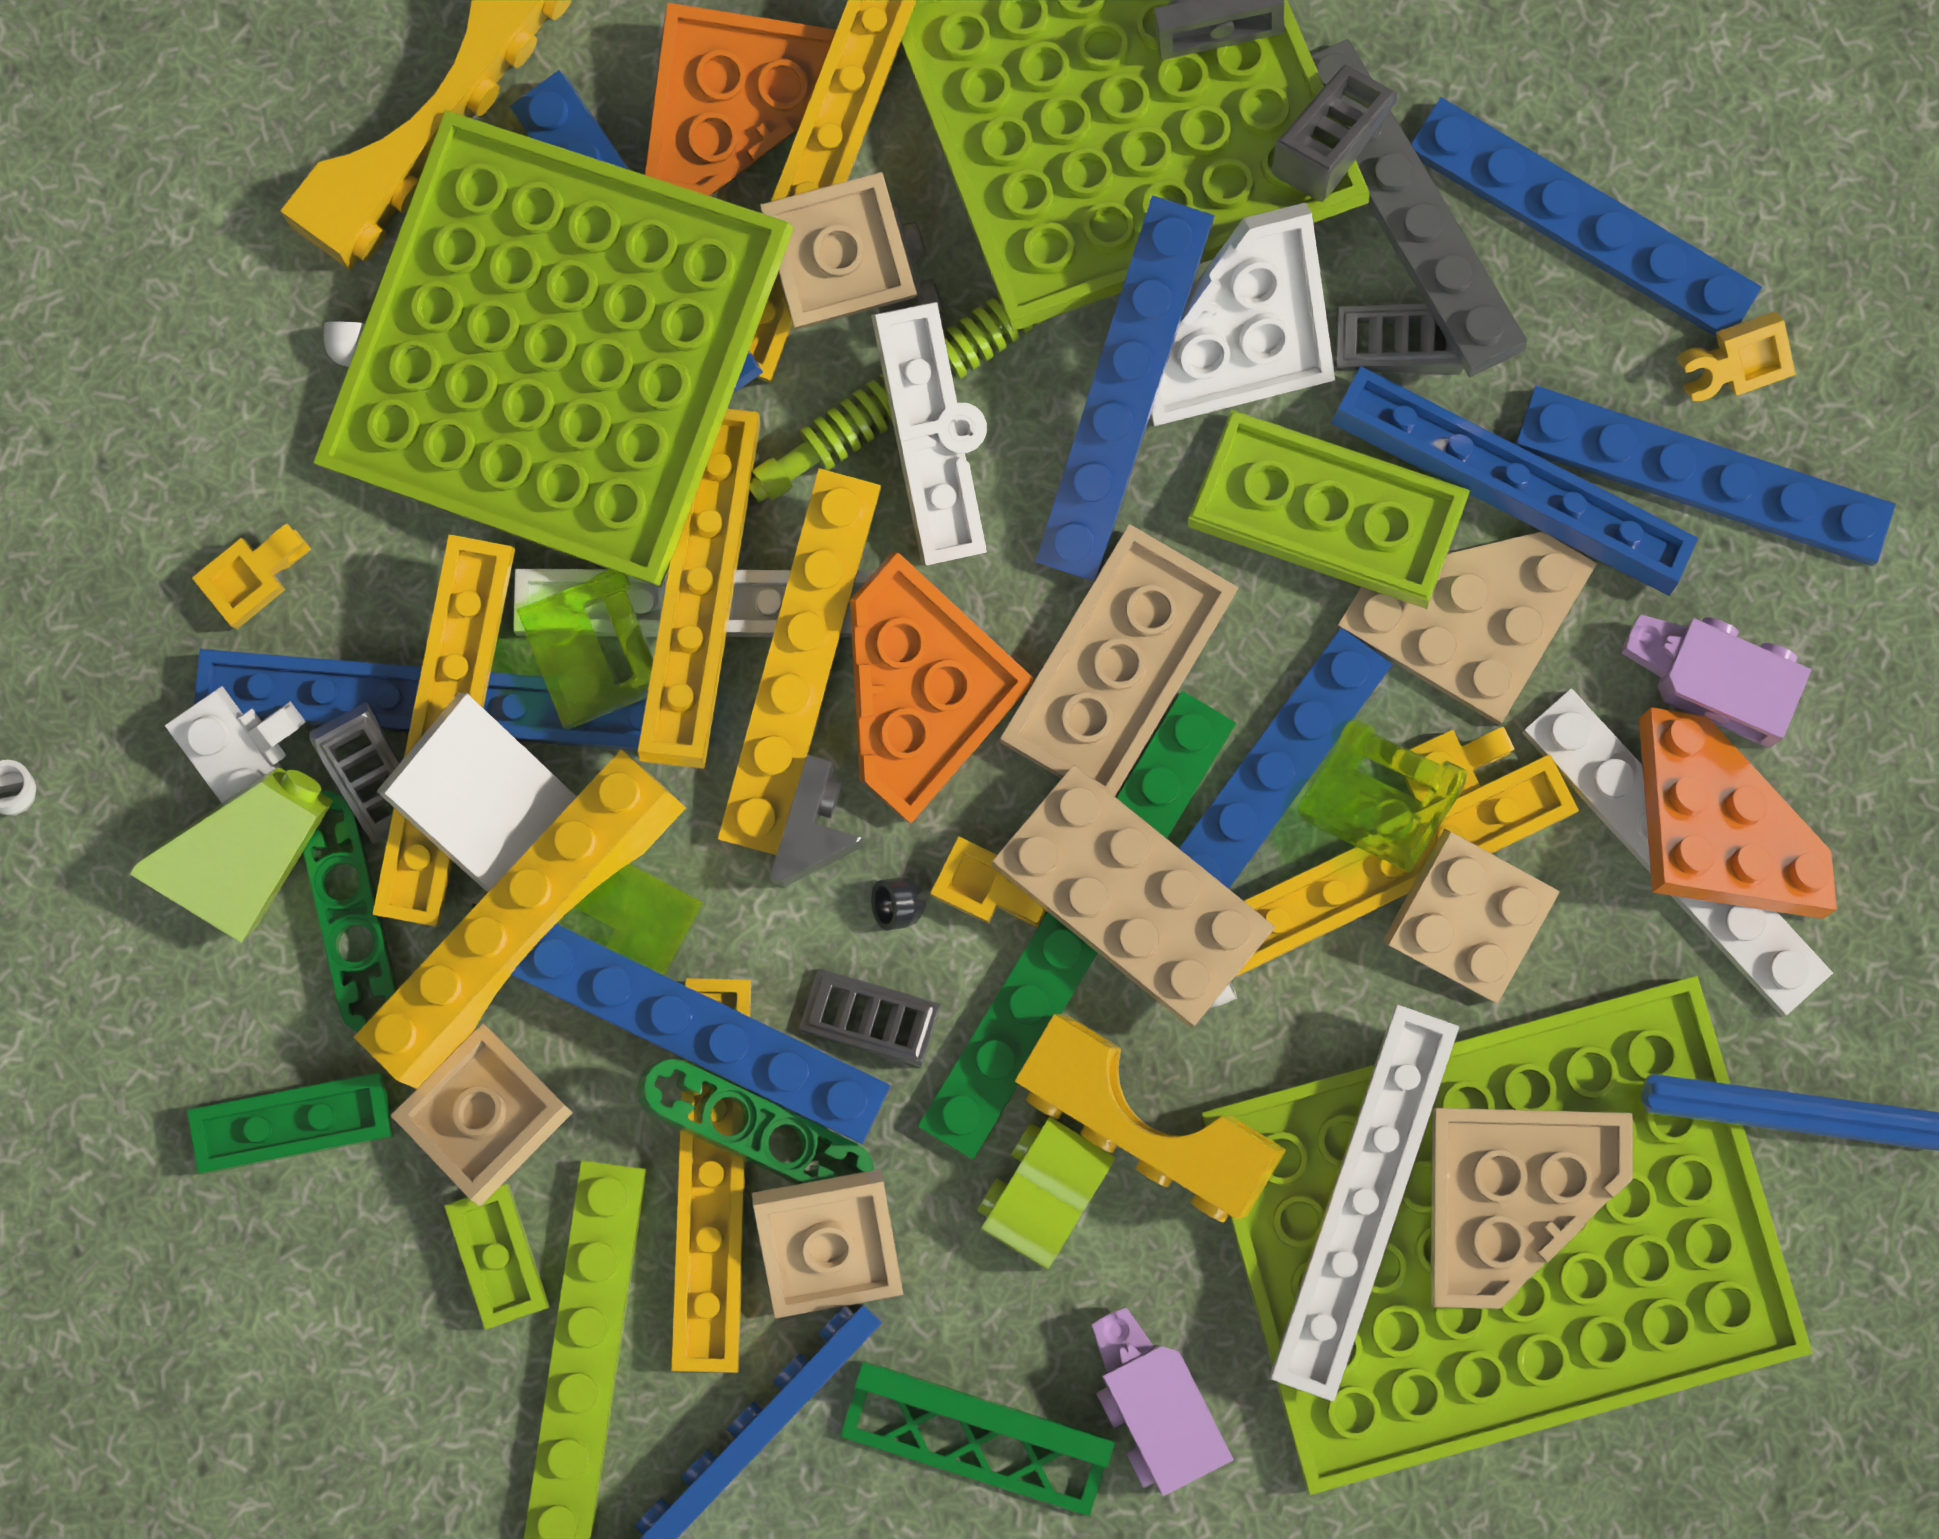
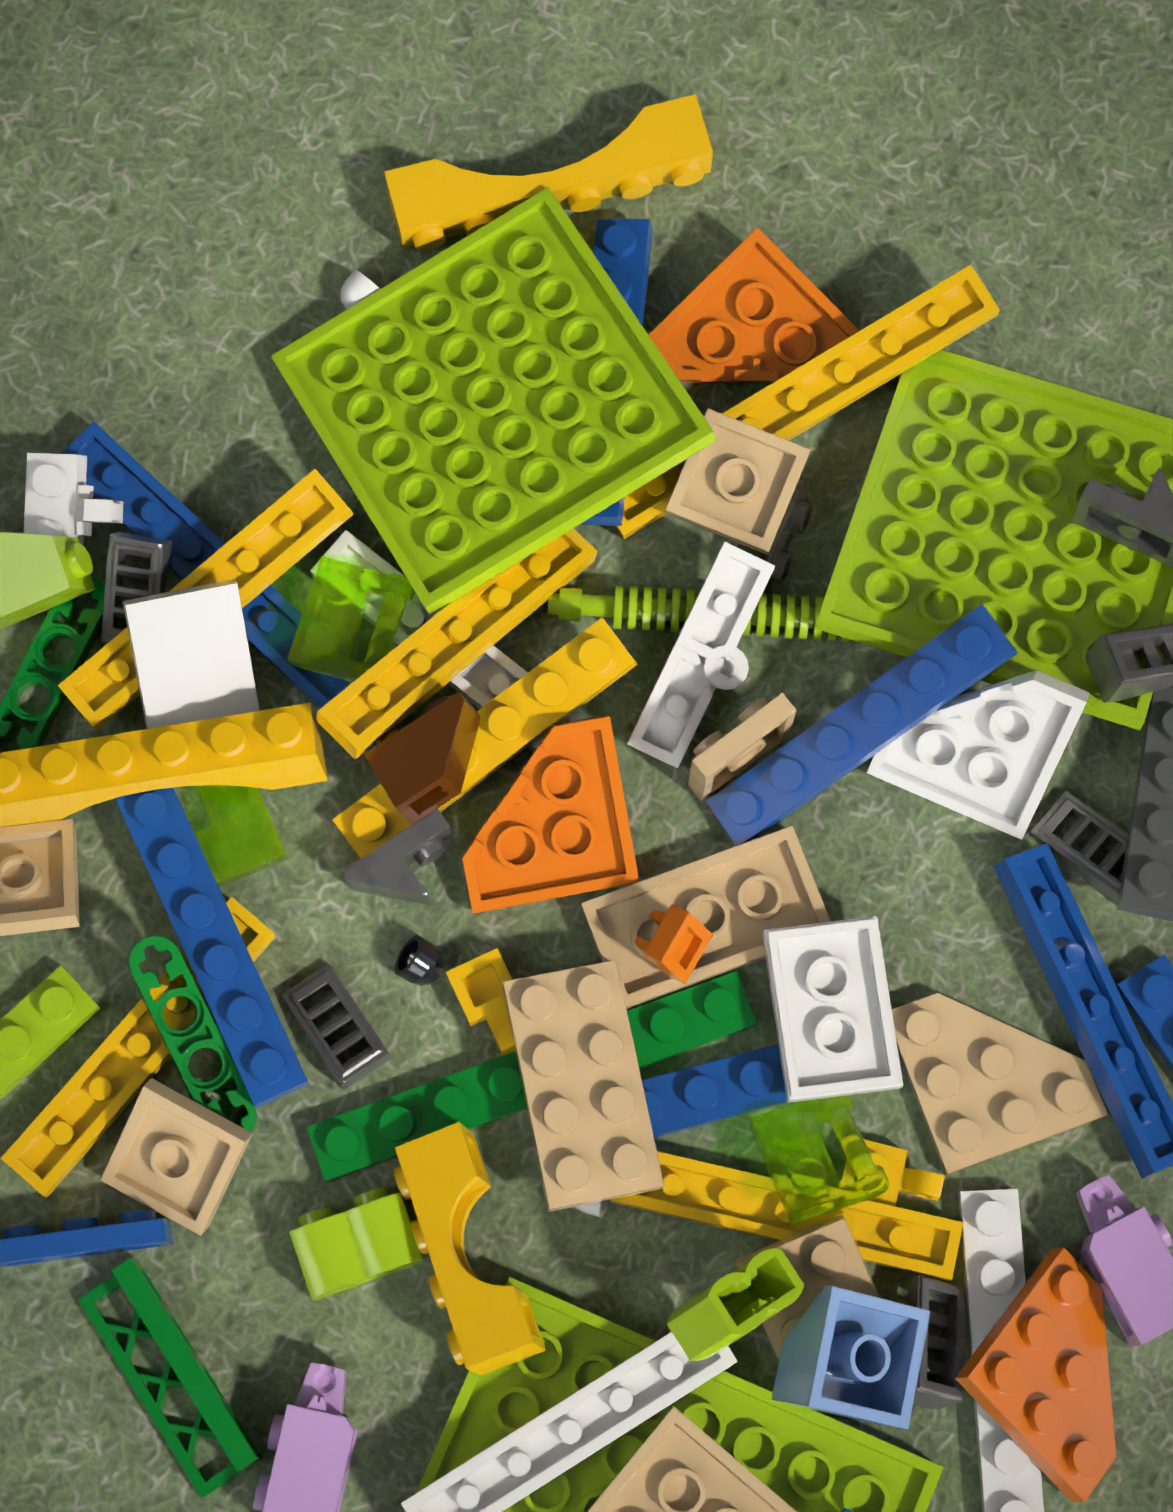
camera: 40 degrees right, 5 degrees down
(244, 579) = (162, 397): yellow plate -> none
(767, 716) = (427, 758): none -> reddish brown slope
(1033, 468) = (724, 757): none -> tan plate
(1116, 707) = (676, 942): none -> orange tile
(1294, 658) = (832, 1009): none -> white tile
(1328, 509) = (943, 925): lime tile -> none
(1424, 978) = (735, 1304): none -> lime brick
(1554, 944) = (854, 1358): none -> medium blue slope
(1612, 917) = (949, 1346): none -> flat silver slope

